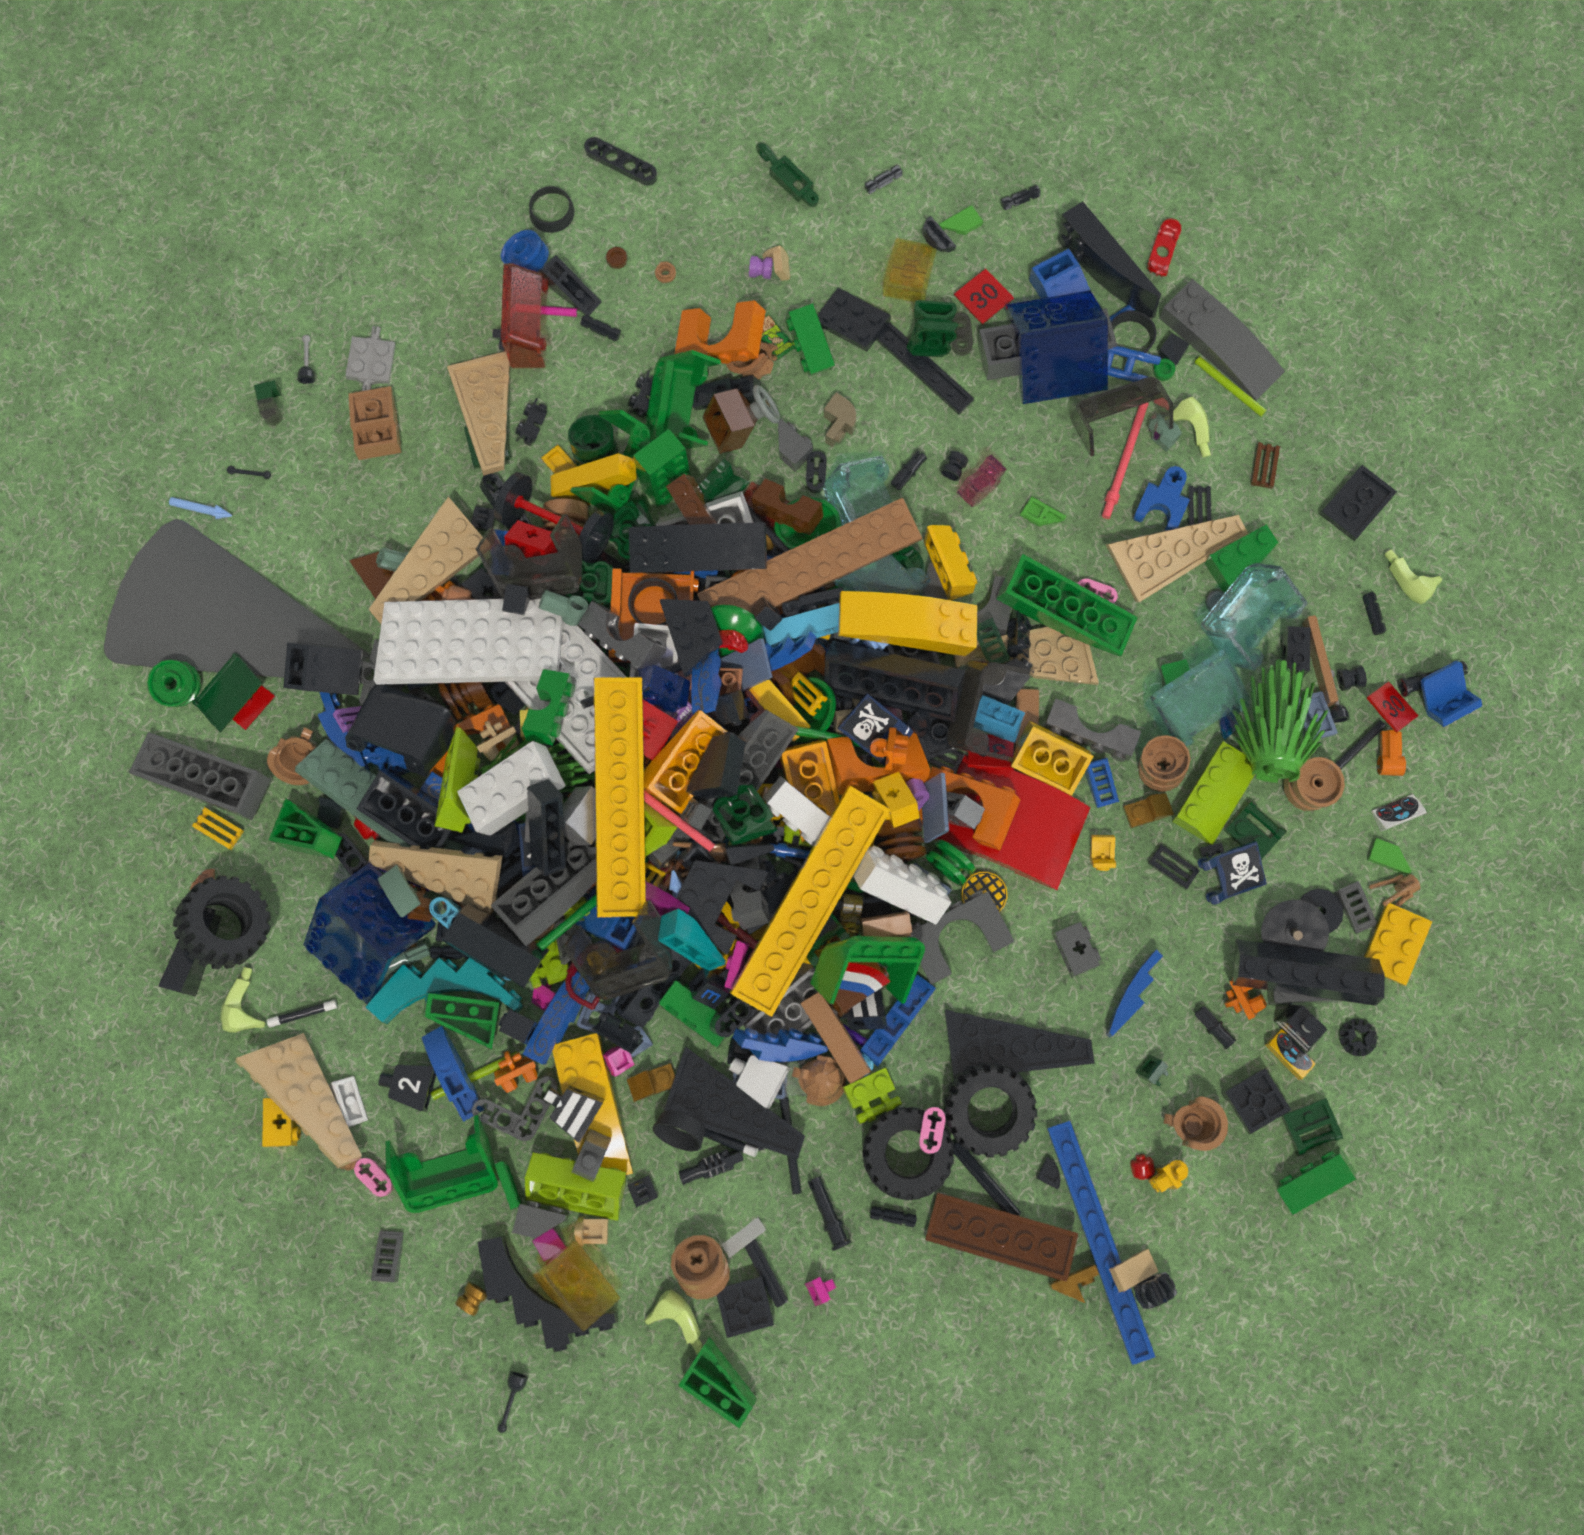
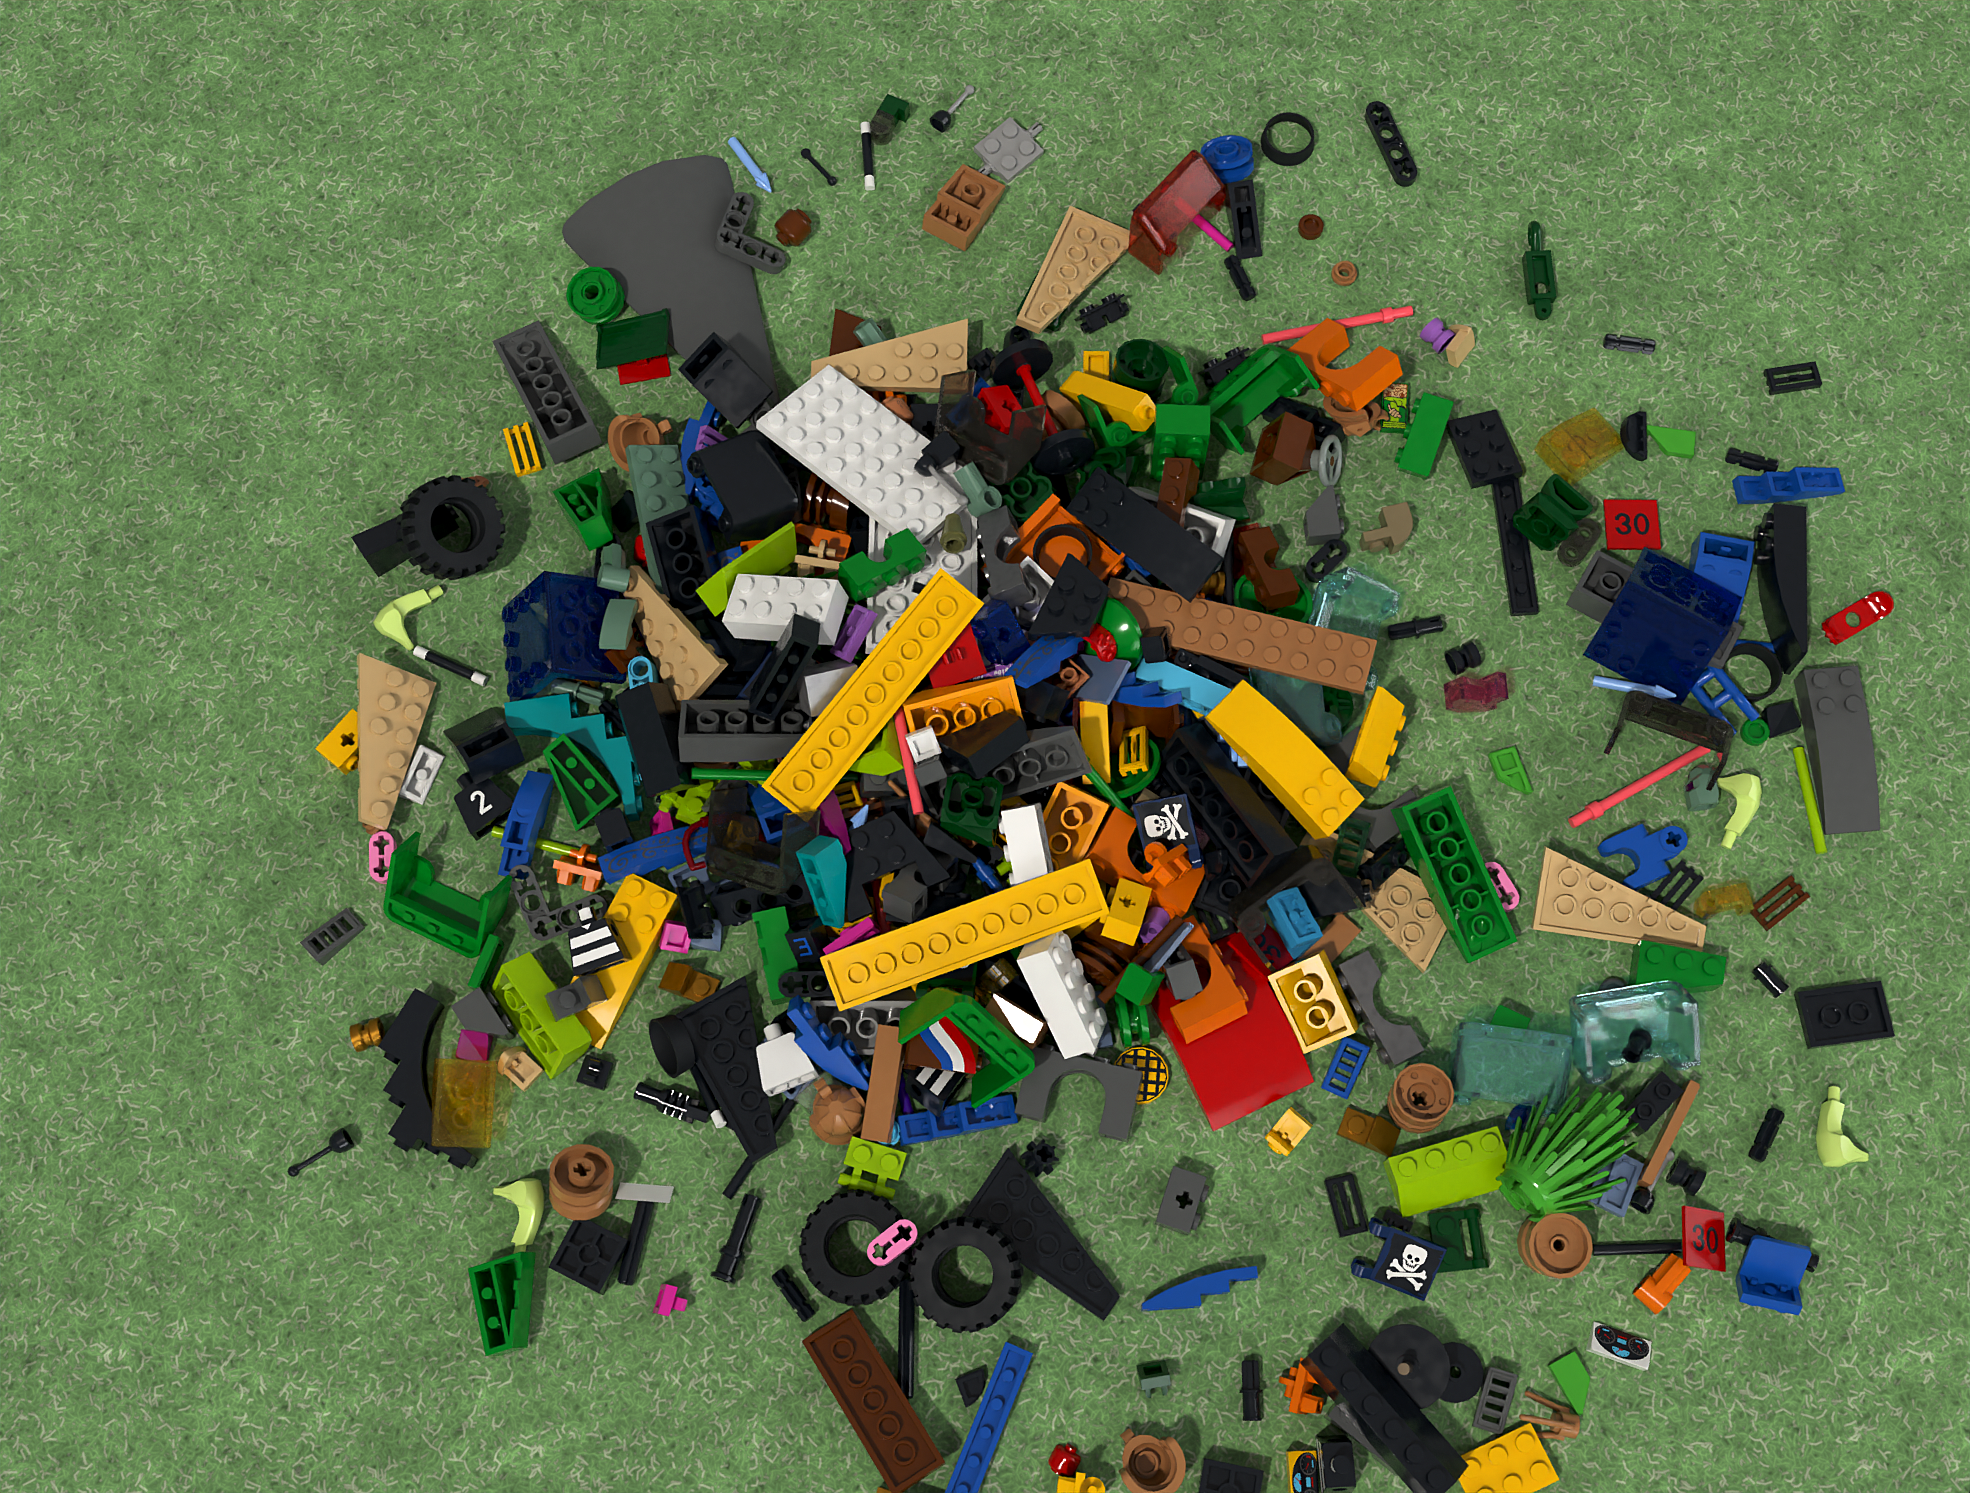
camera: 40 degrees right, 5 degrees down
(236, 565) = (735, 236): none -> dark grey beam
(270, 528) = (793, 227): none -> reddish brown head
(287, 449) = (867, 156): none -> black bar
(362, 859) = (613, 569): none -> sand green piece
(377, 1045) = (484, 745): none -> black slope
(517, 618) = (928, 466): none -> hinge
(569, 767) = (853, 633): none -> medium lavender tile
(574, 649) = (953, 535): none -> olive cone
(678, 801) = (923, 743): none -> white tile
(715, 280) = (1385, 315): none -> coral bar
(929, 822) = (1143, 956): none -> reddish brown bar
(943, 838) = (1139, 984): none -> green panel
(969, 998) = (1039, 1158): none -> black gear
(990, 135) = (1771, 382): none -> black tile
(1055, 196) = (1788, 486): none -> blue slope
(1087, 392) = (1626, 686): none -> light blue piece
(1229, 496) = (1723, 900): none -> clear yellow leg
(1259, 619) = (1638, 1042): none -> black pin
(1299, 517) = (1769, 979): none -> black pin

